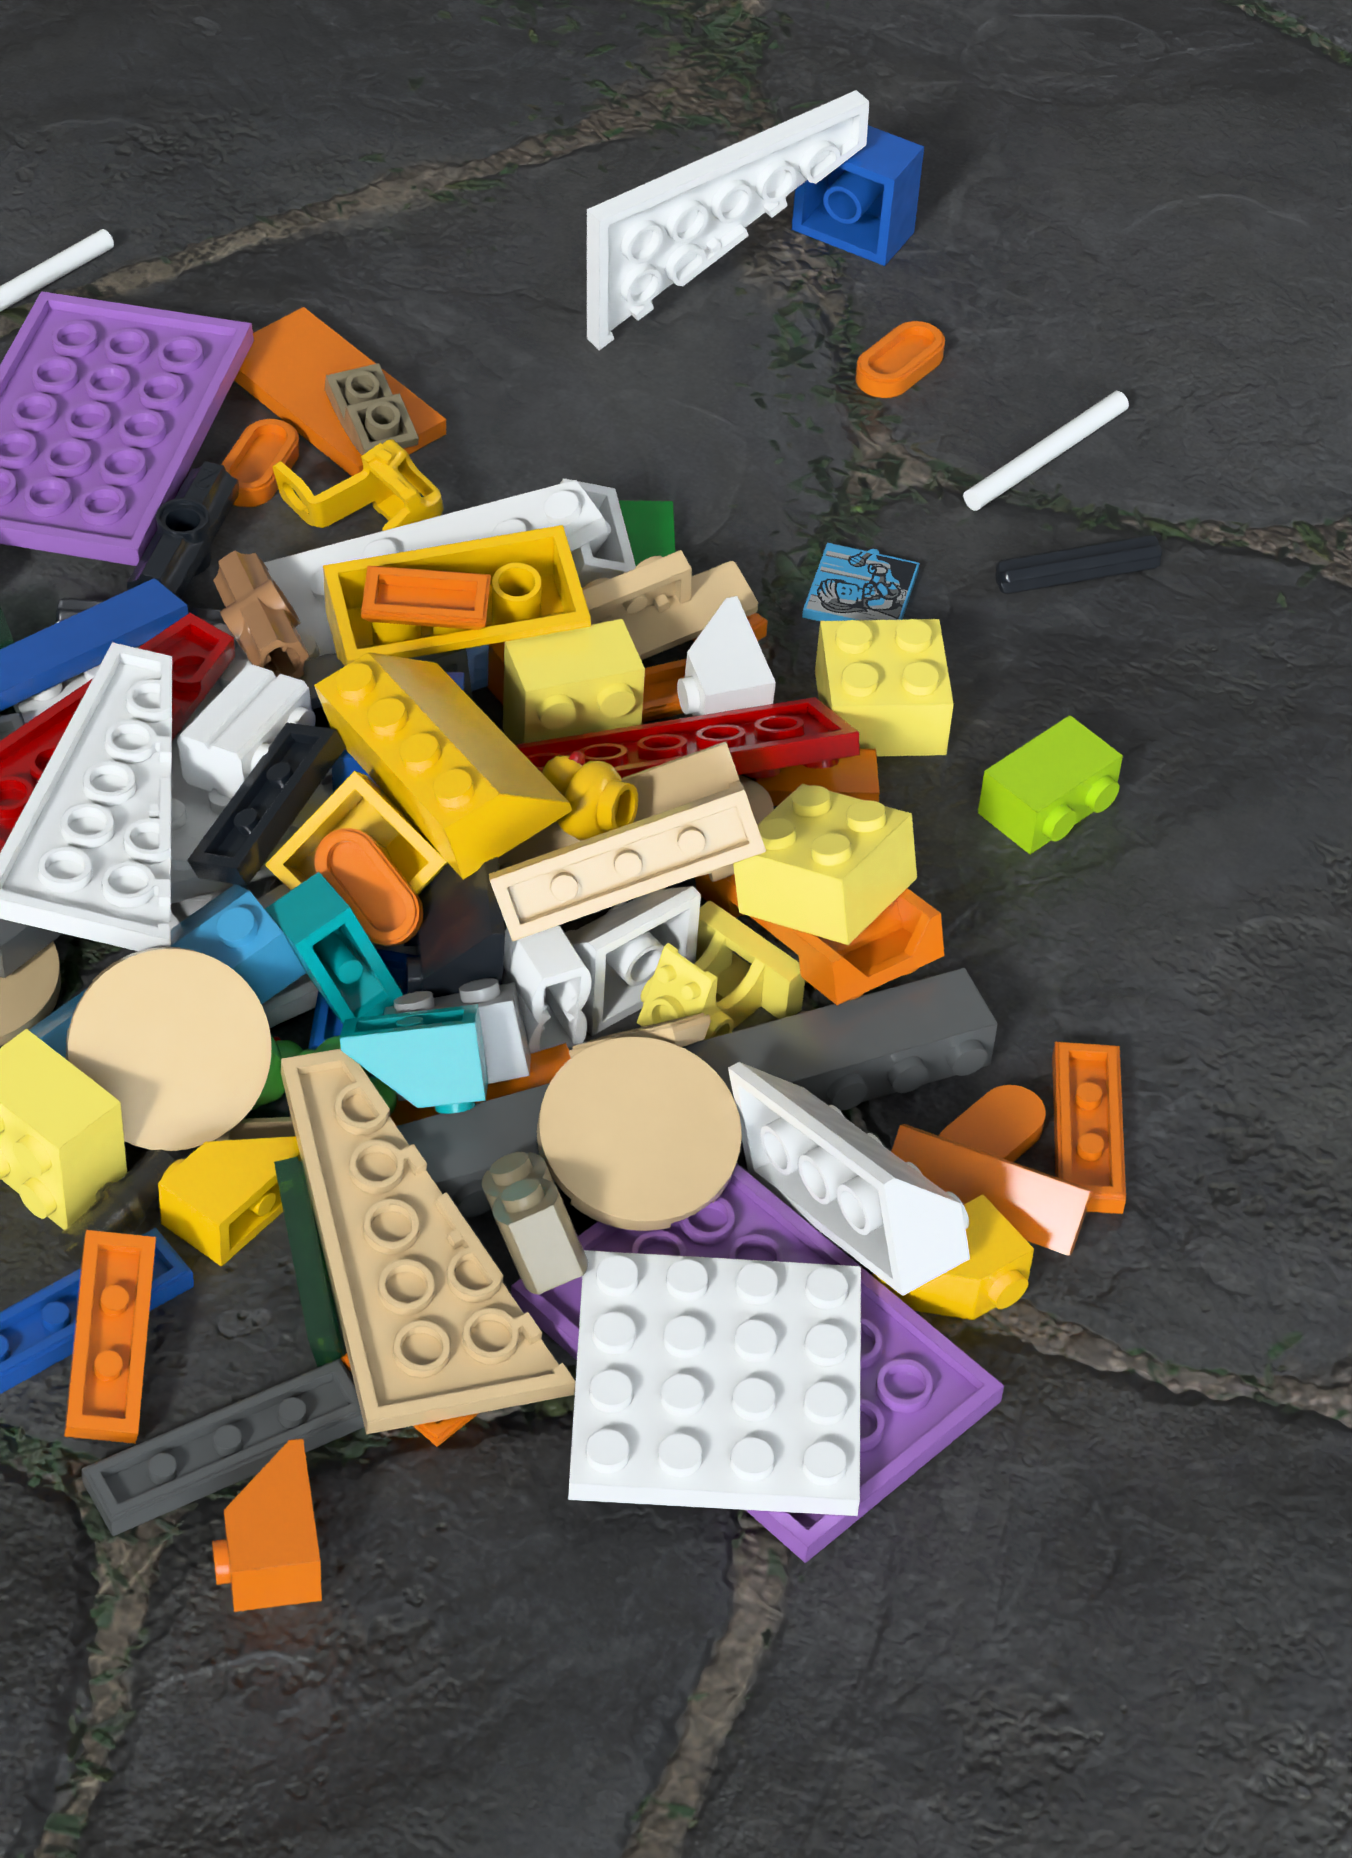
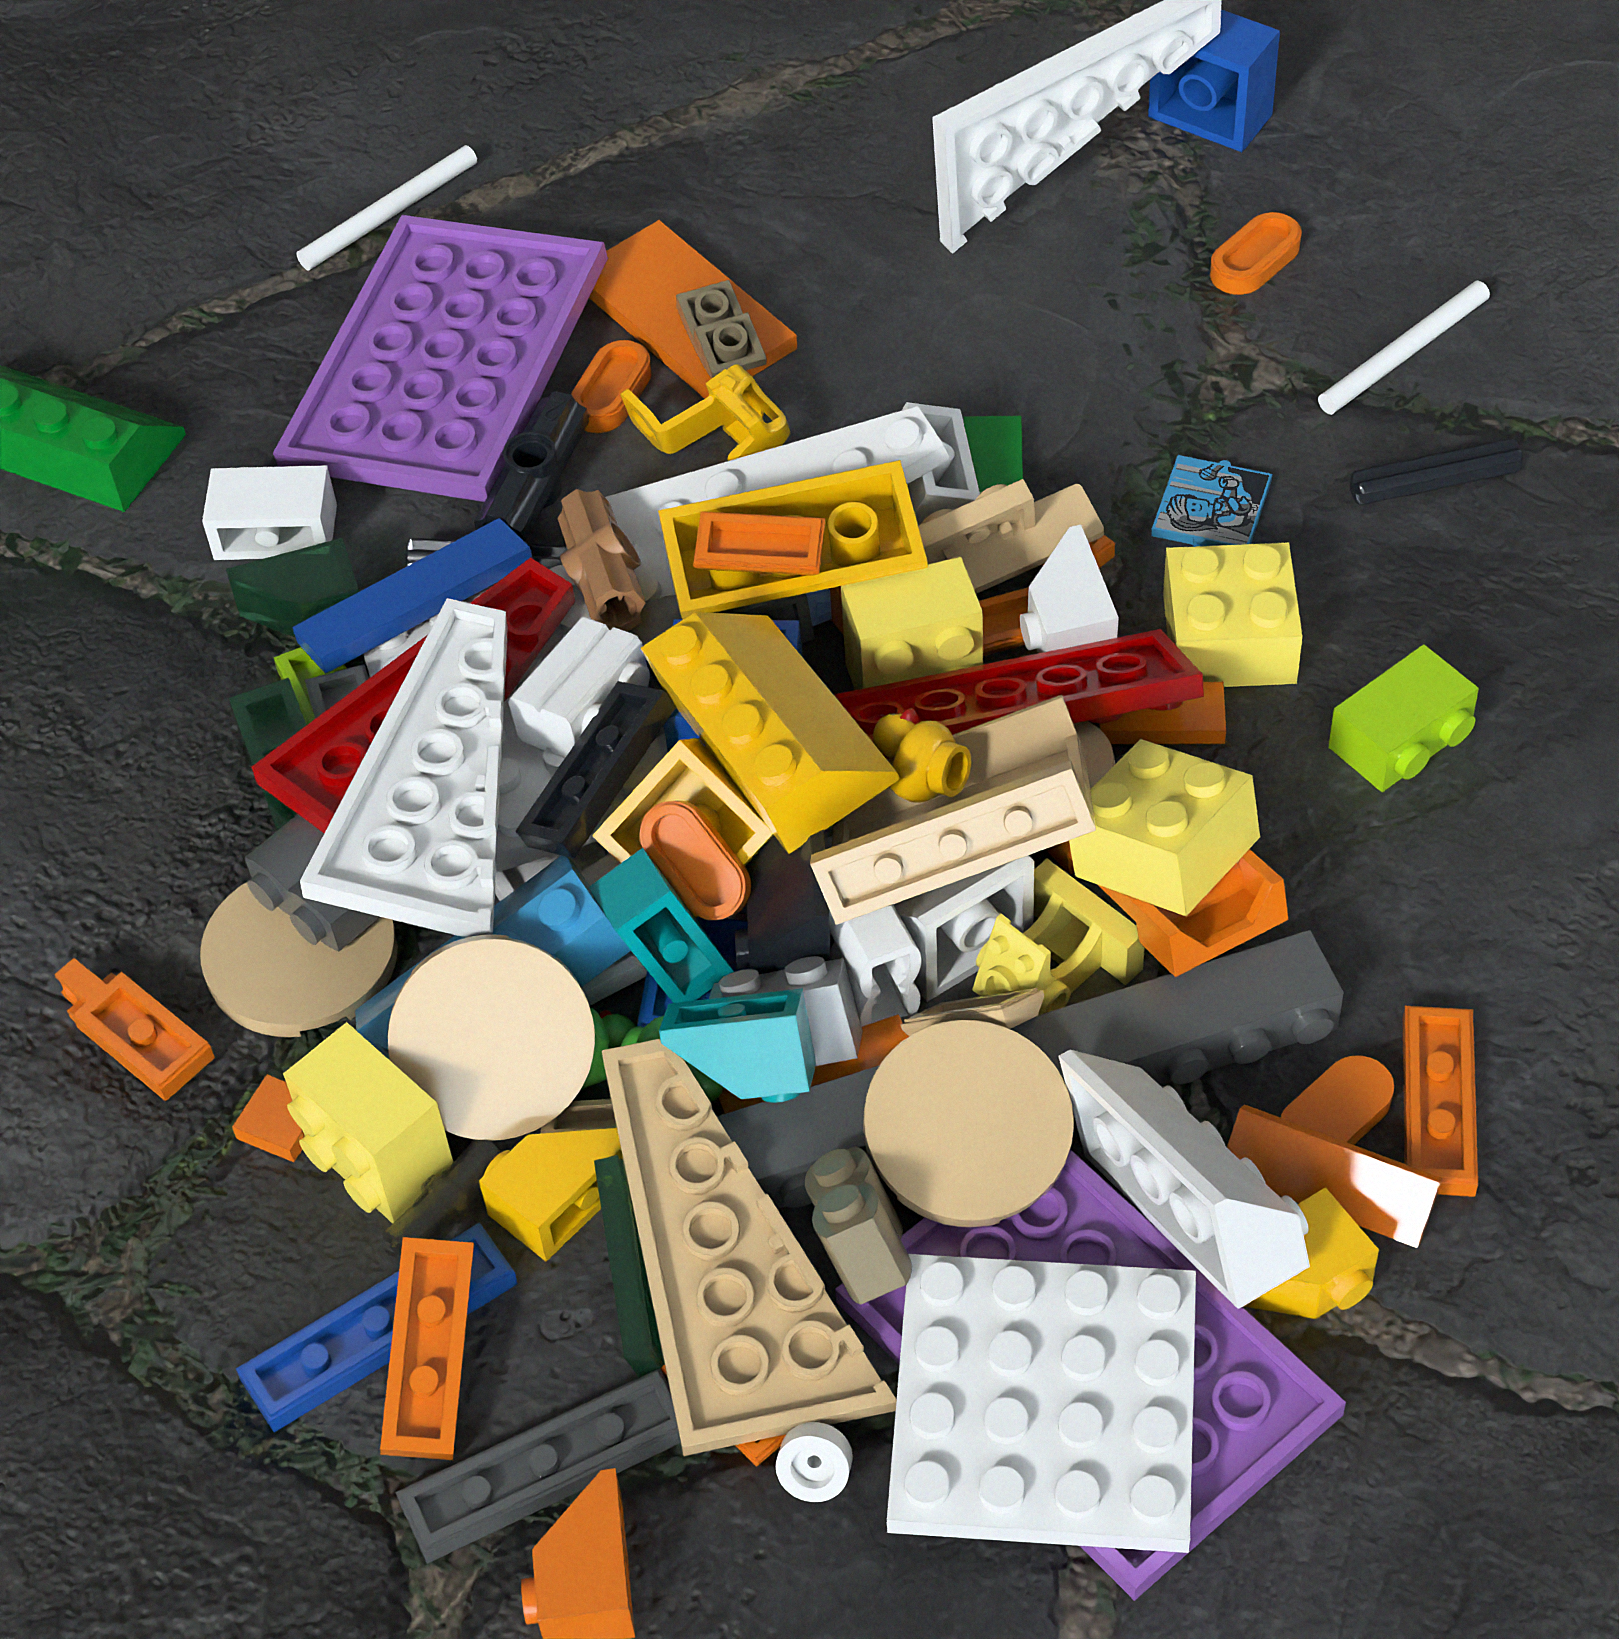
camera: 10 degrees right, 5 degrees up
(494, 1439) = (814, 1462): none -> white tile

